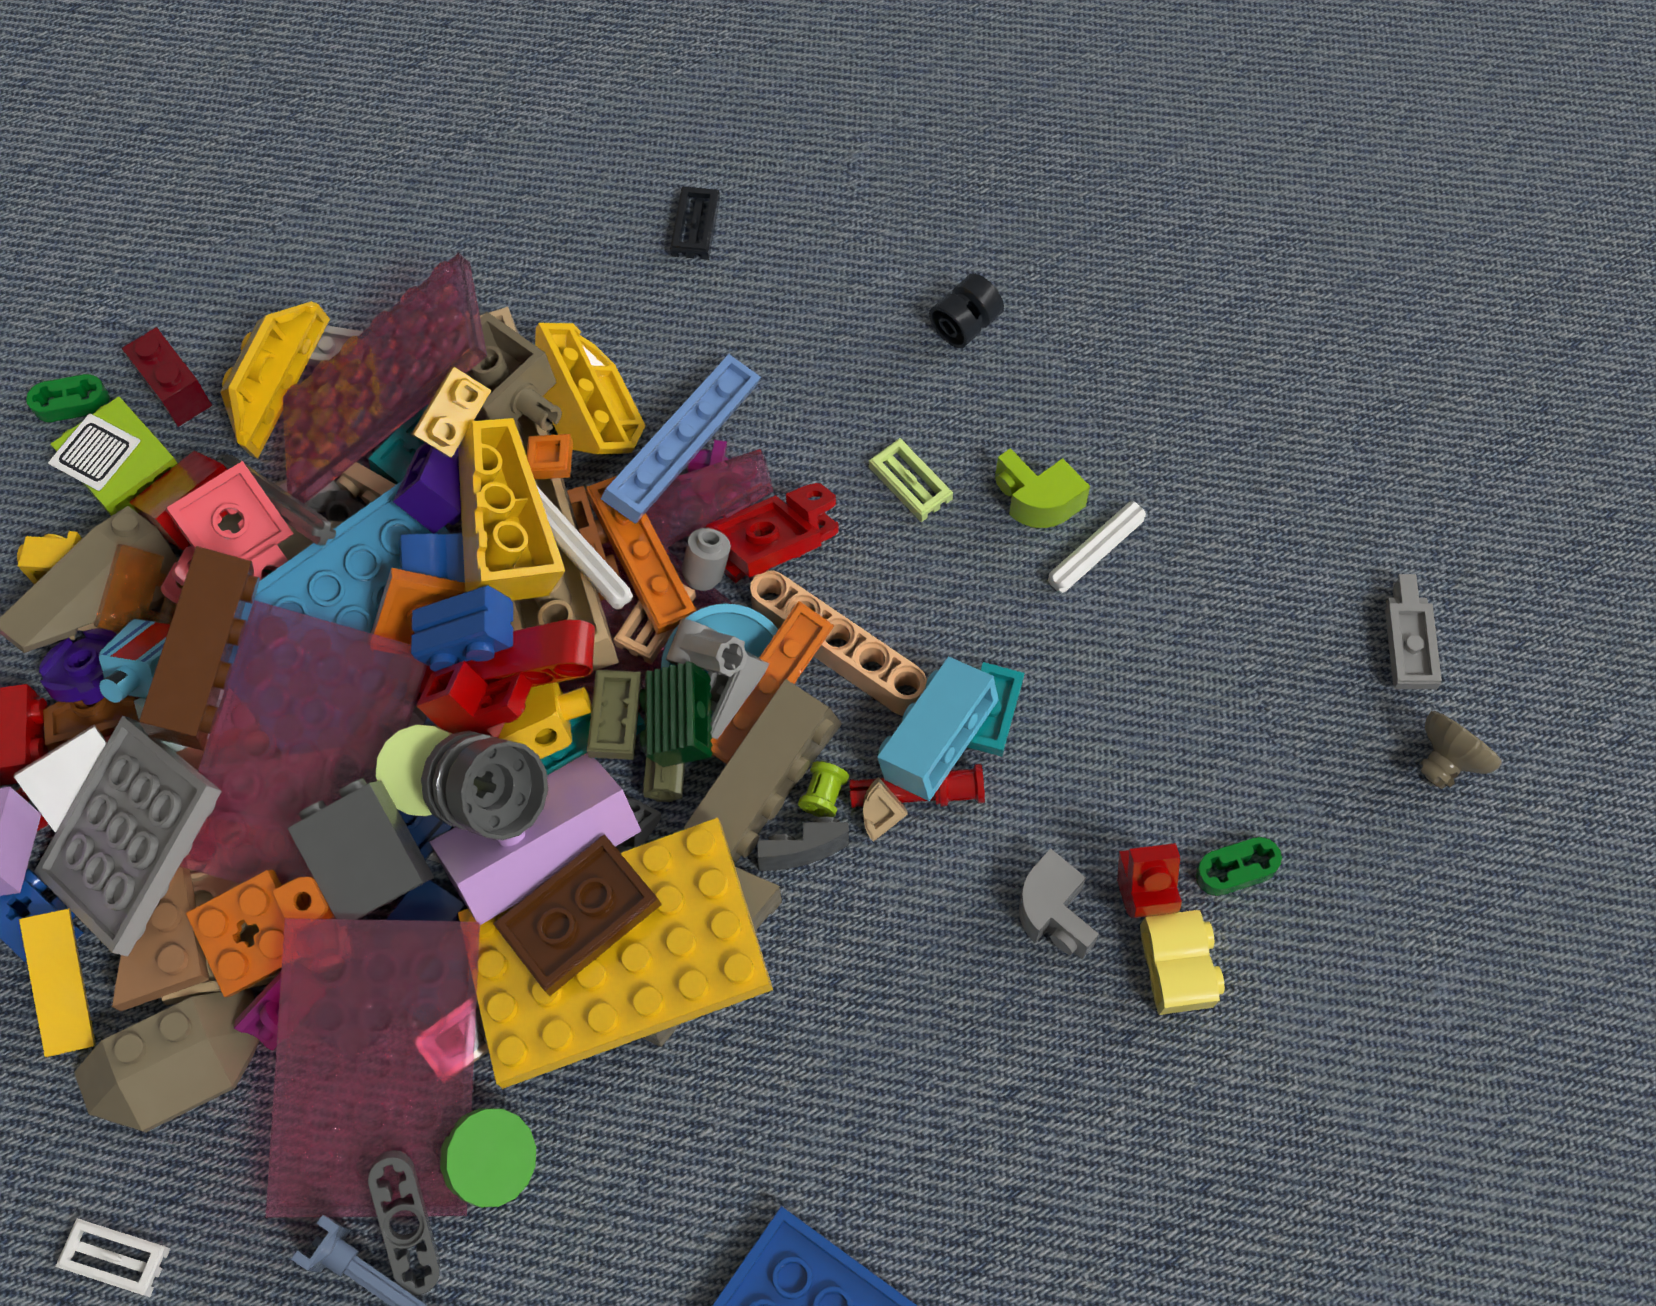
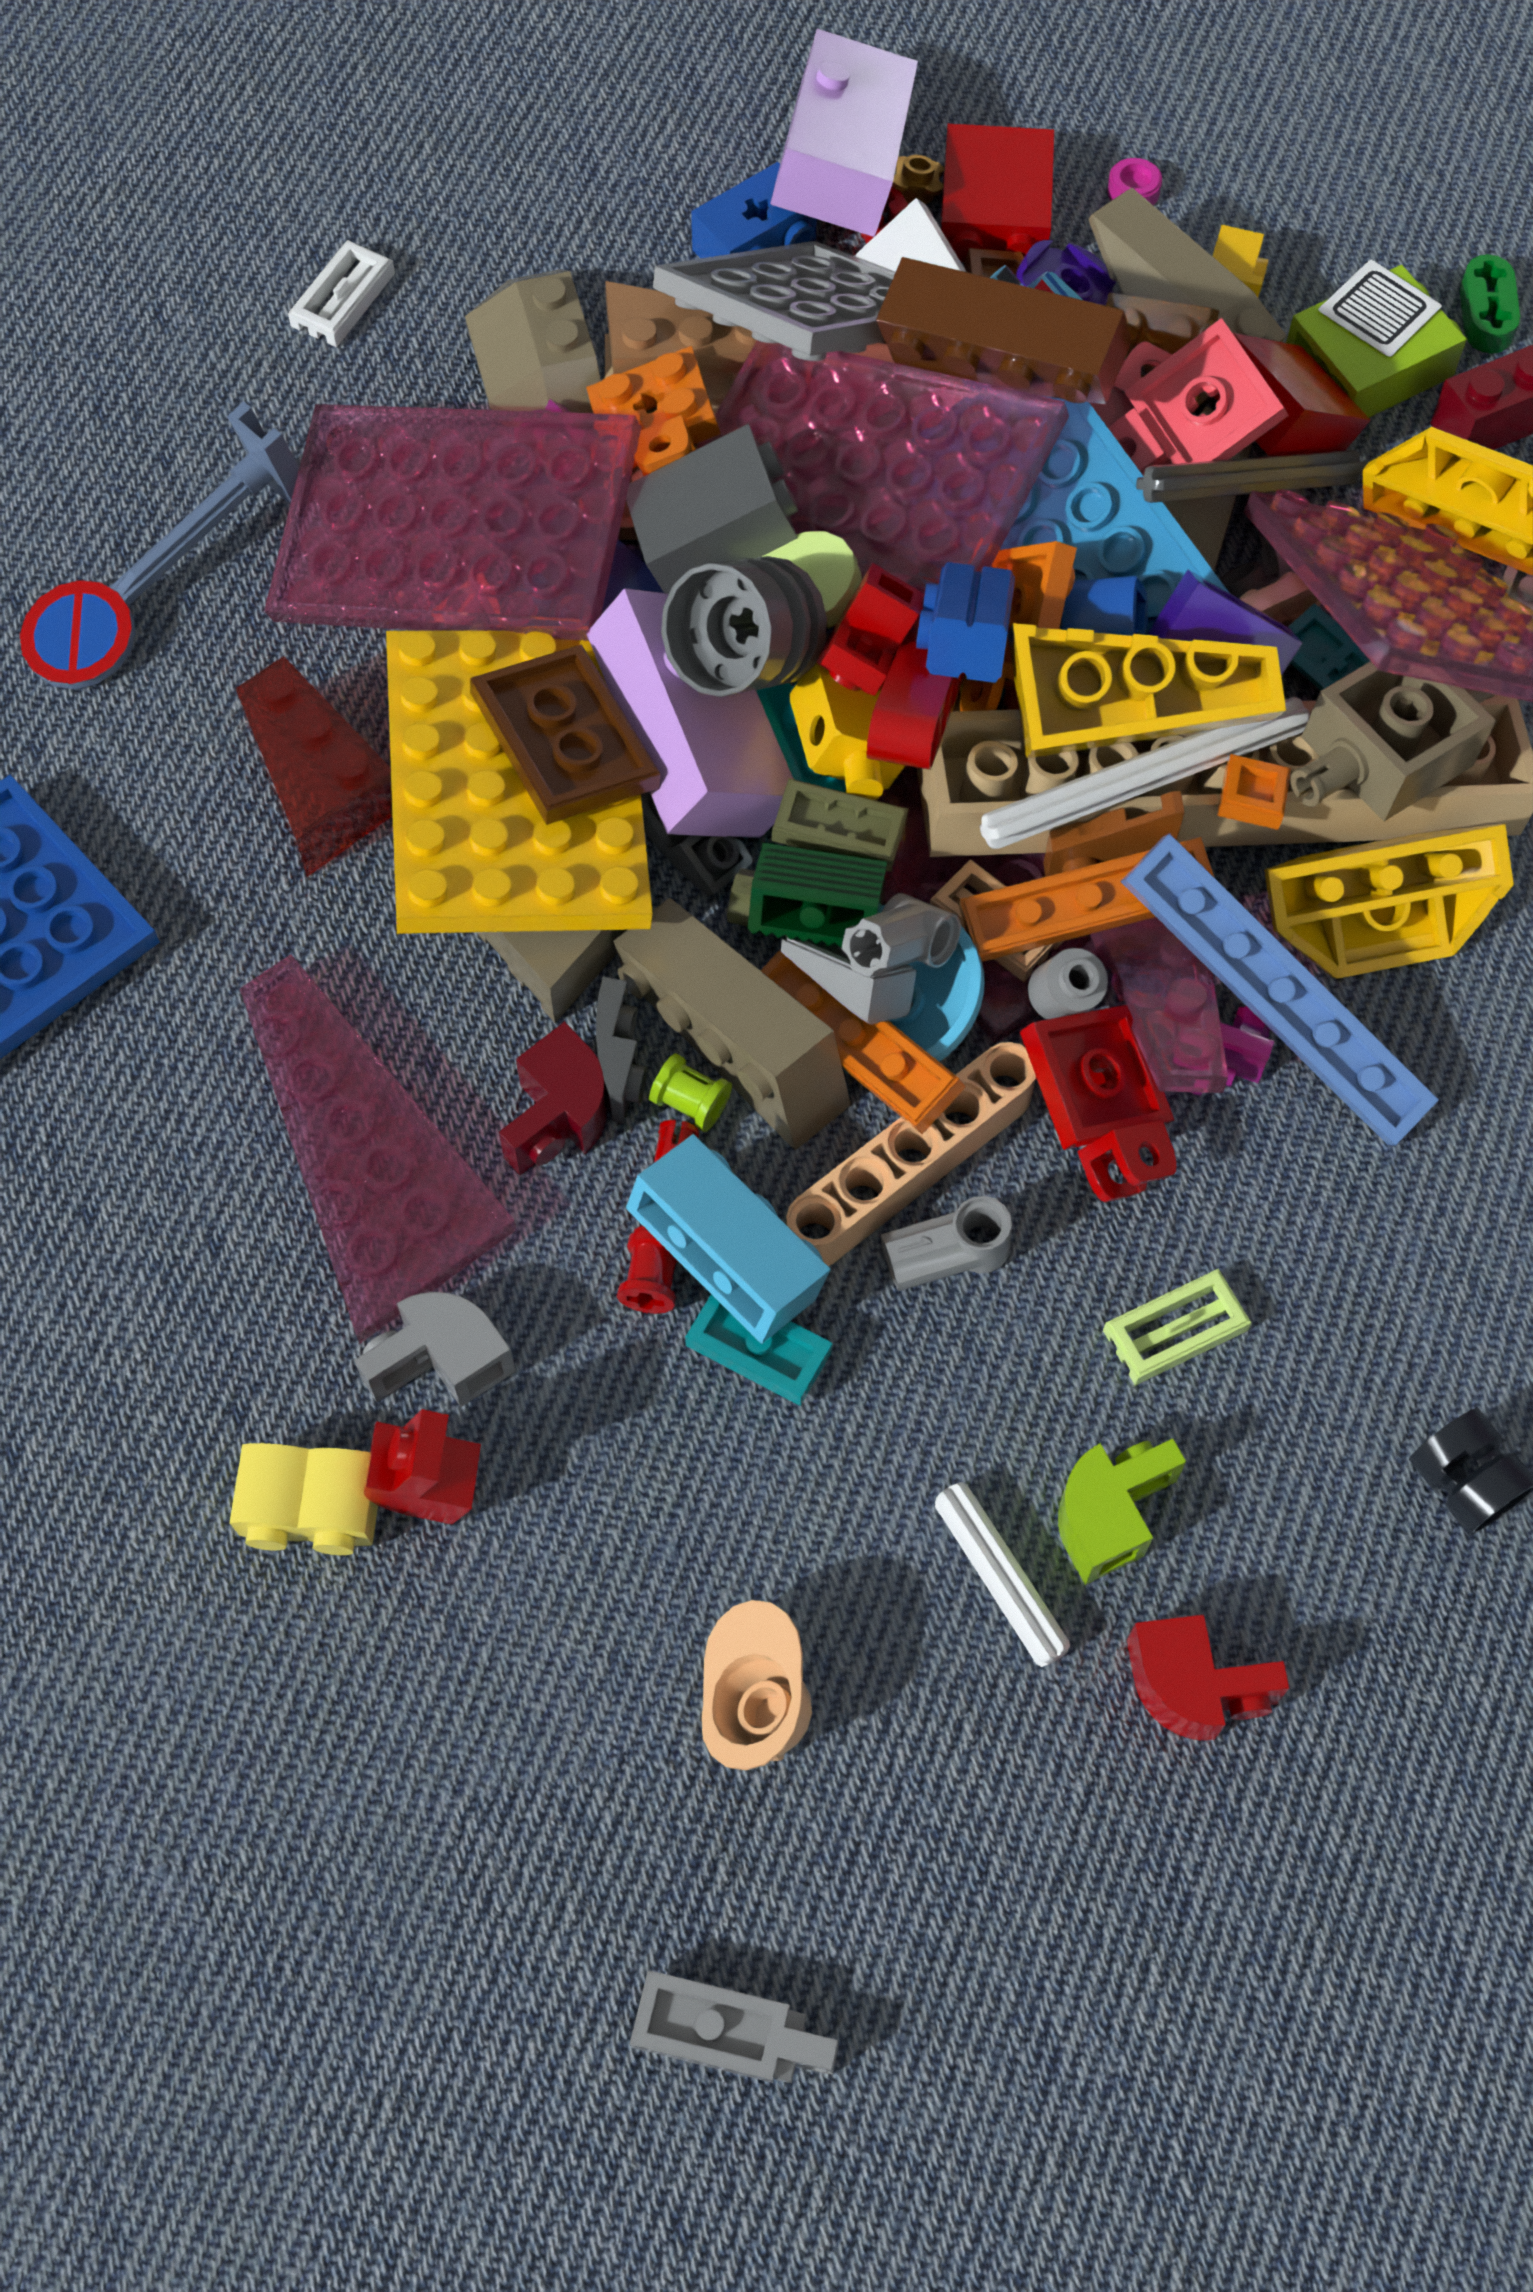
camera: 100 degrees right, 0 degrees up
(57, 982) = (677, 235): yellow tile -> none
(427, 1251) = (304, 525): dark grey beam -> none
(451, 412) = (1304, 632): yellow hips -> none
(488, 1157) = (319, 629): bright green tile -> none
(609, 1127) = (317, 764): none -> clear red wedge
(845, 864) = (569, 1099): none -> dark red brick
(881, 809) = (635, 1152): tan tile -> none
(897, 611) = (941, 1245): none -> light grey piece
(933, 985) = (378, 1172): none -> clear pink wing
(1135, 436) = (1183, 1688): none -> red brick
(1221, 656) = (754, 1687): none -> light nougat piece
(1234, 857) = (410, 1630): green beam -> none
(1454, 752) = (507, 2020): dark tan hair -> none

